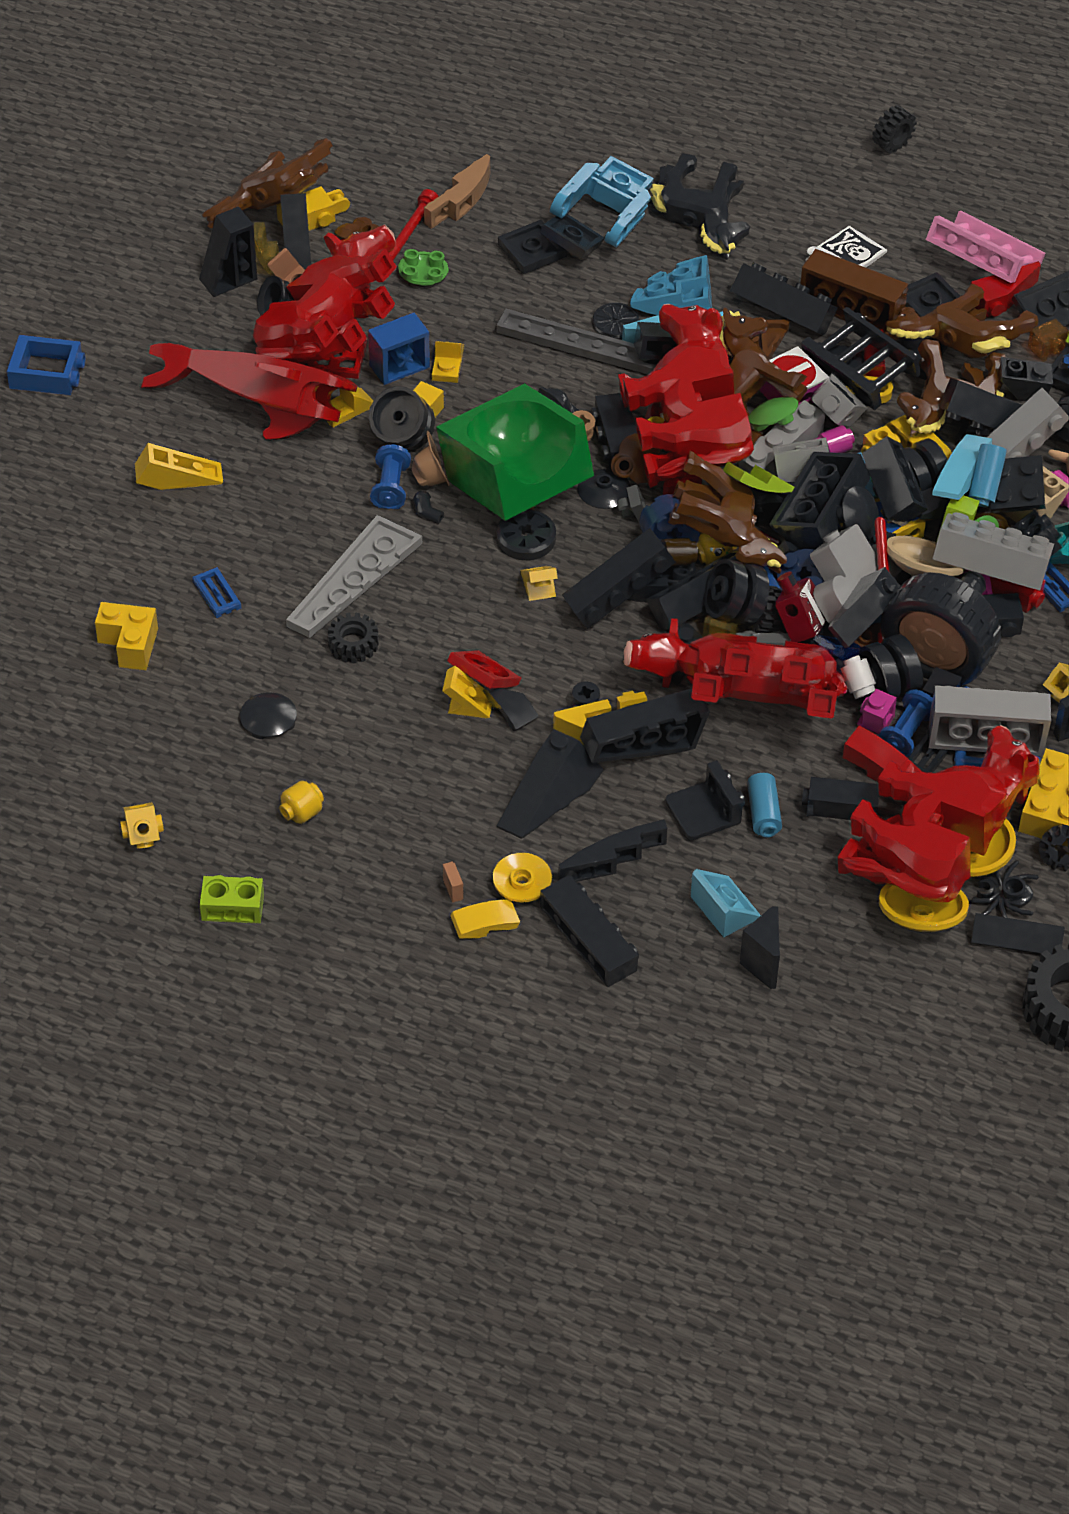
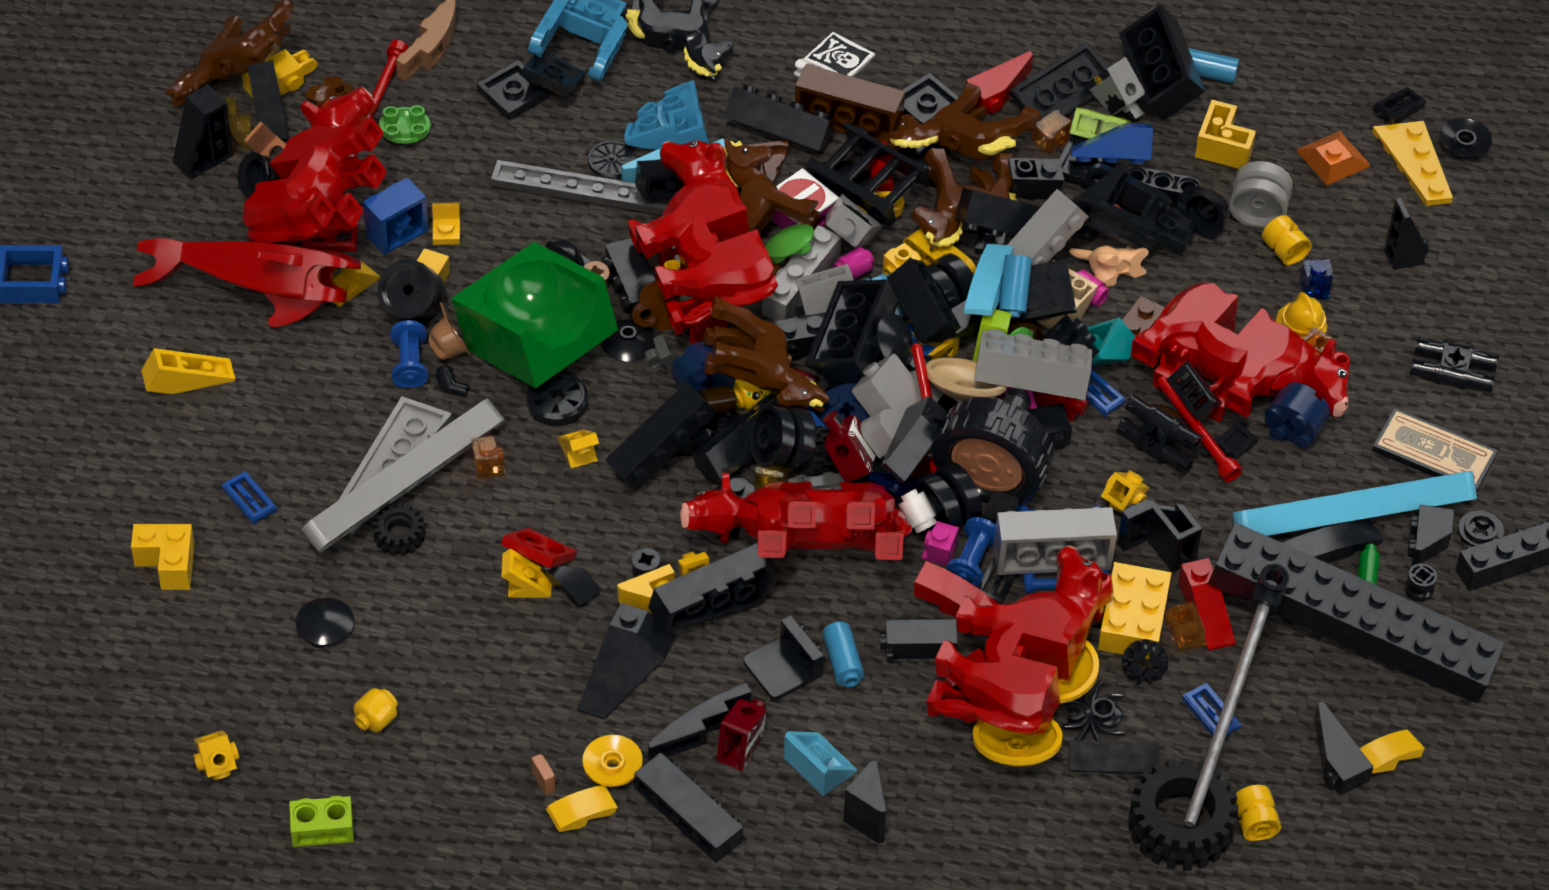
camera: 10 degrees left, 0 degrees up
(364, 587) = (401, 476): none -> light grey beam
(449, 581) = (487, 458): none -> clear orange brick
(654, 856) = (745, 720): none -> dark red torso
(758, 479) = (787, 316): lime slope -> none
(983, 245) = (973, 40): bright pink fence -> none

